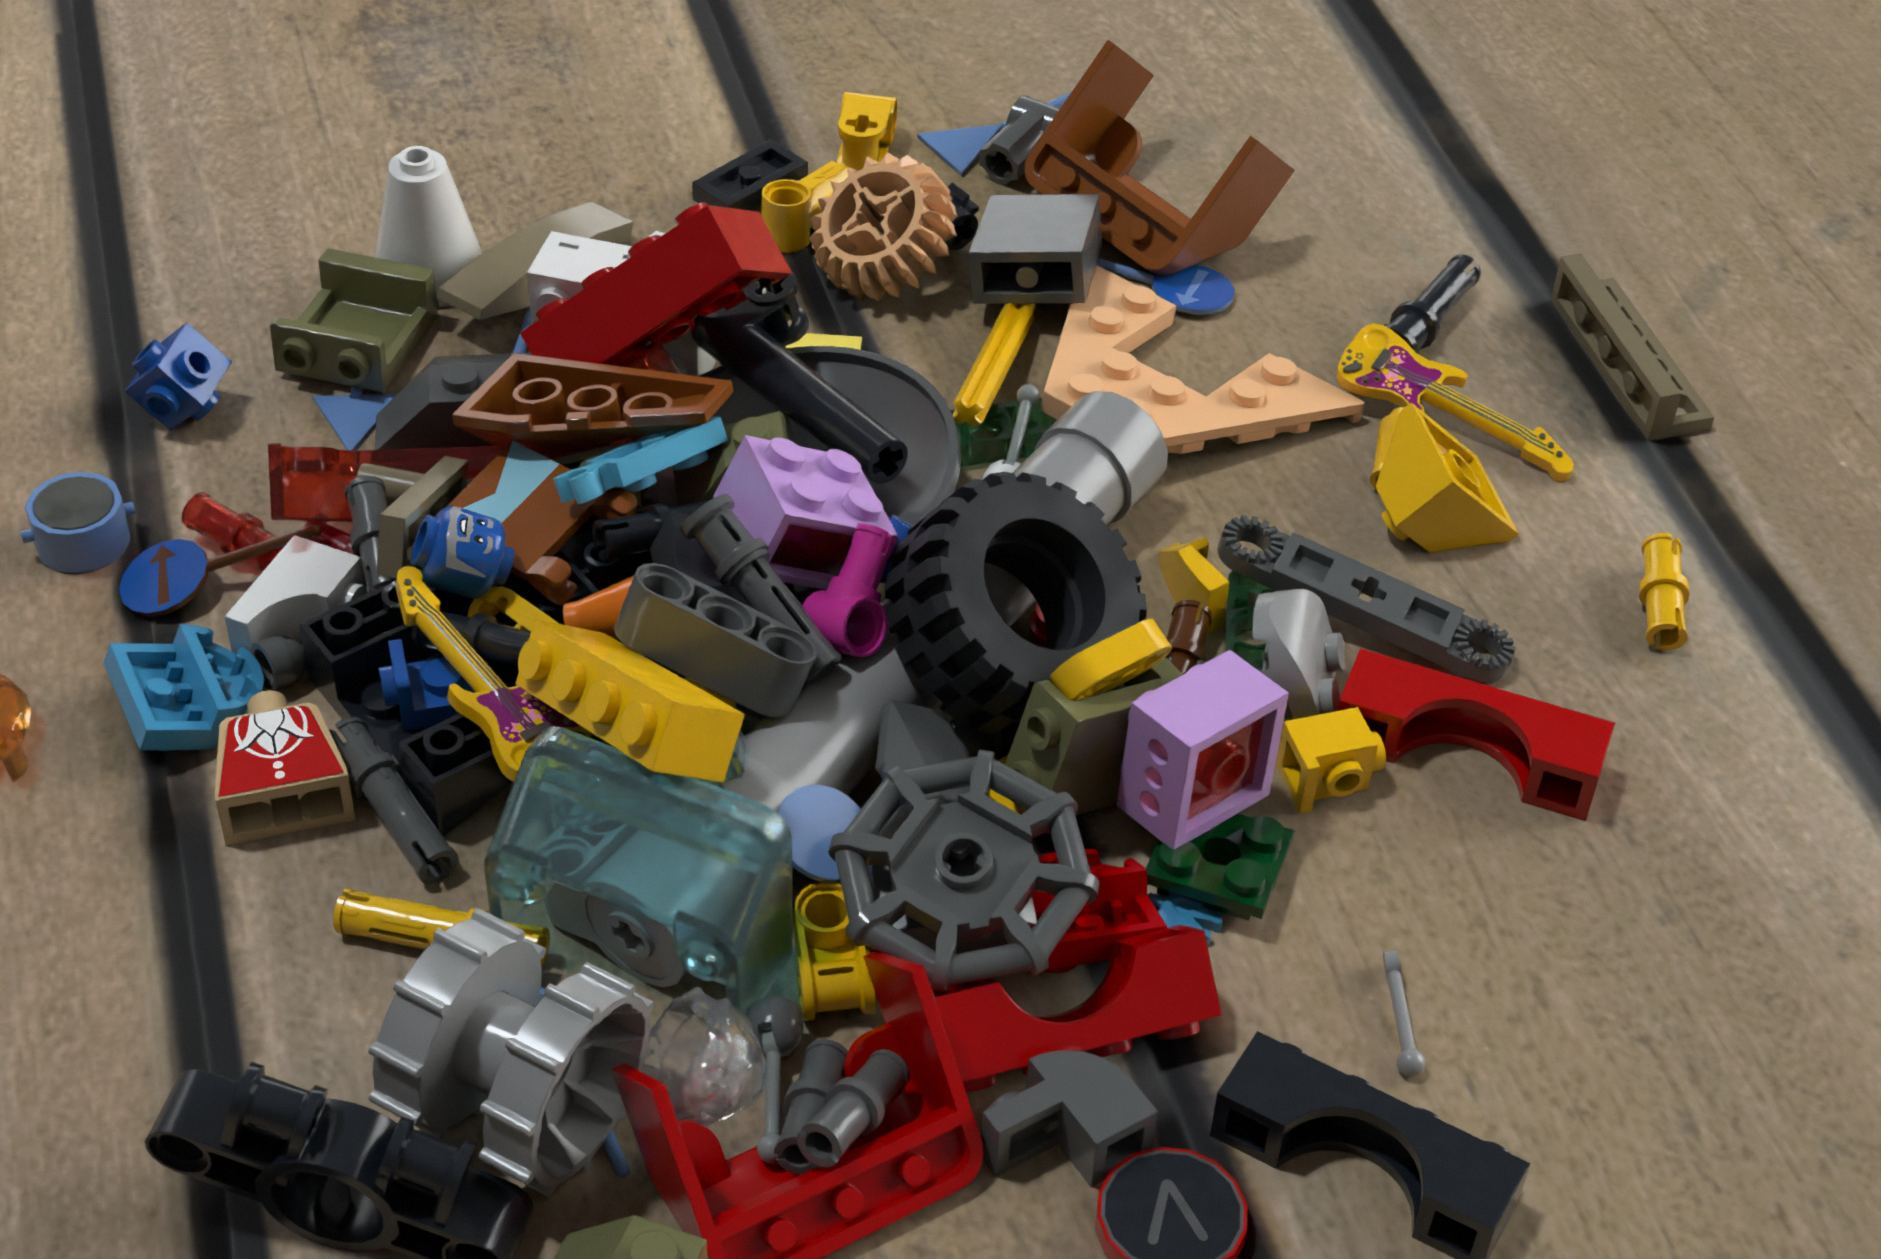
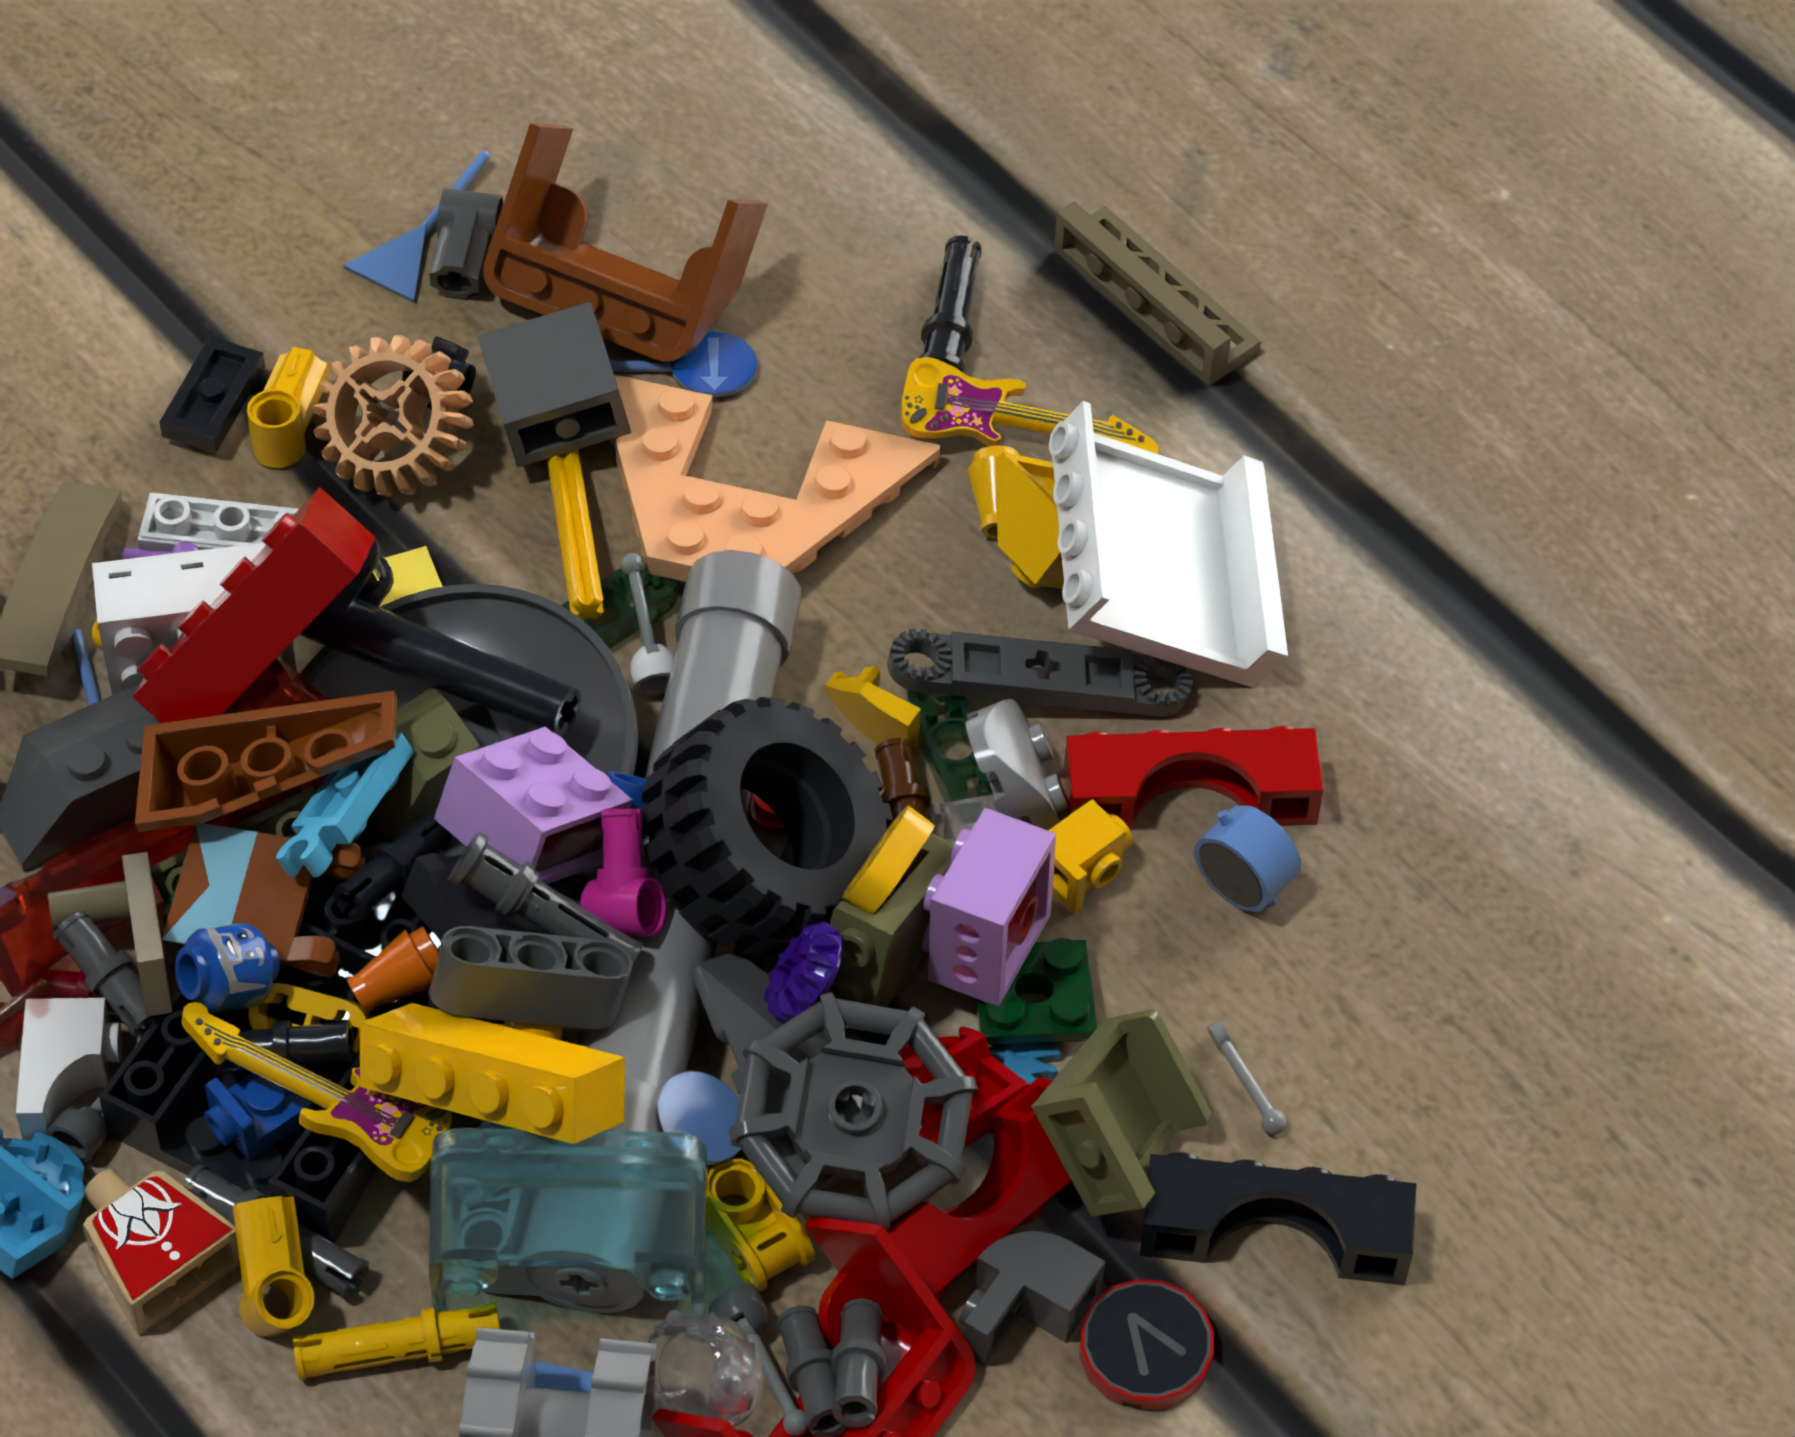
camera: 25 degrees left, 10 degrees up
(362, 813) = (271, 1257): none -> yellow piece
(865, 128) = (297, 292): yellow piece -> none
(984, 728) = (804, 971): none -> dark purple gear
(1242, 971) = (1118, 1106): none -> olive panel
(1493, 812) = (1247, 858): none -> medium blue piece
(1531, 536) = (1167, 554): none -> white panel
(1664, 591) = (1297, 563): yellow pin -> none

